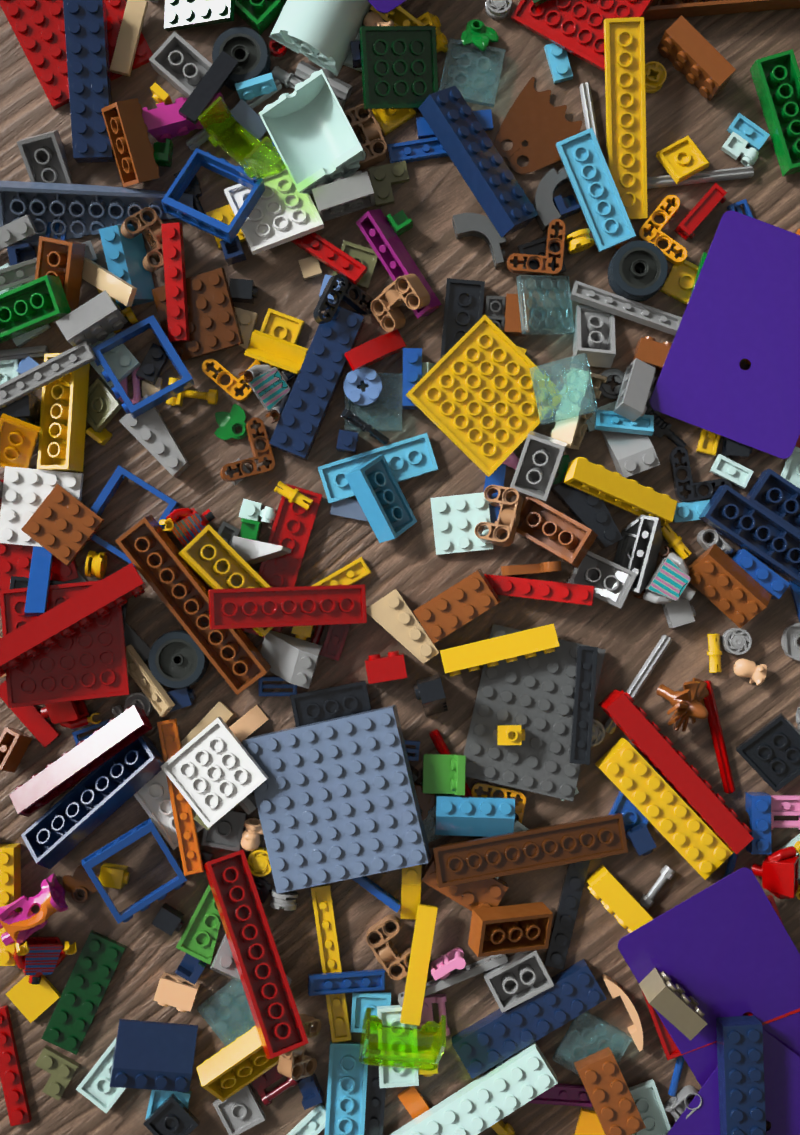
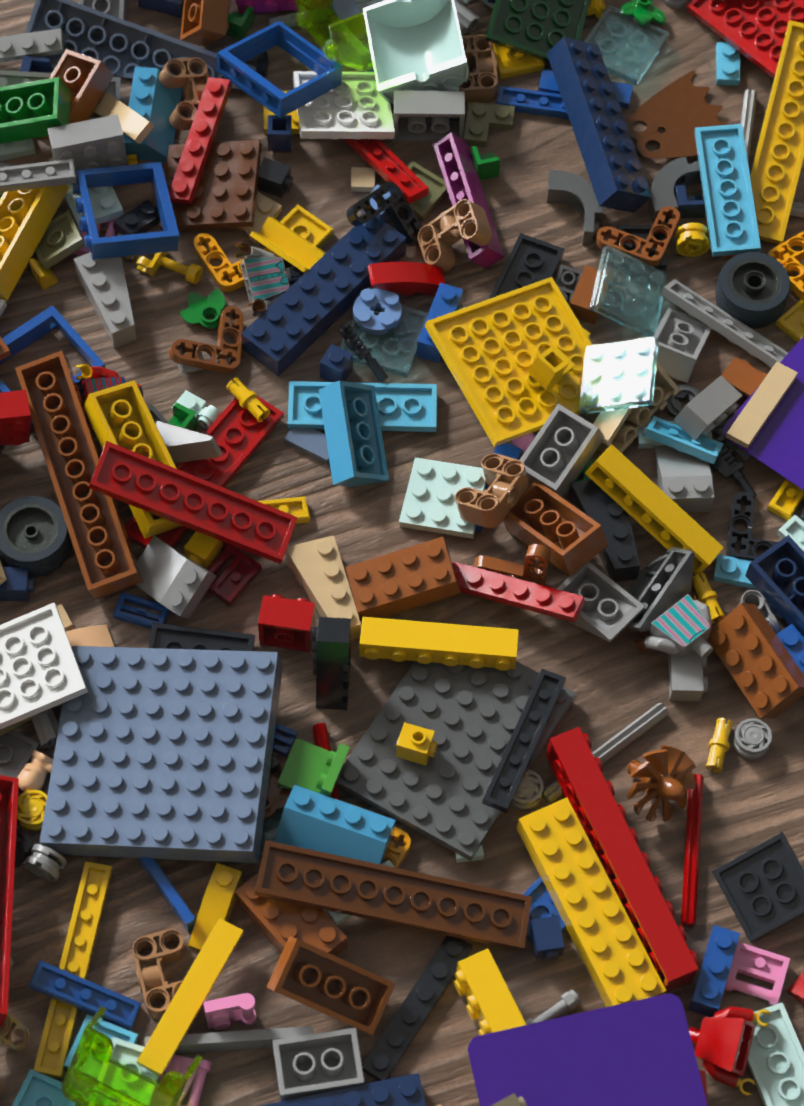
camera: 20 degrees right, 25 degrees down
(512, 401) = (550, 367): none -> yellow brick
(674, 375) = (762, 405): none -> tan tile
(749, 669) = (757, 776): light nougat animal -> none

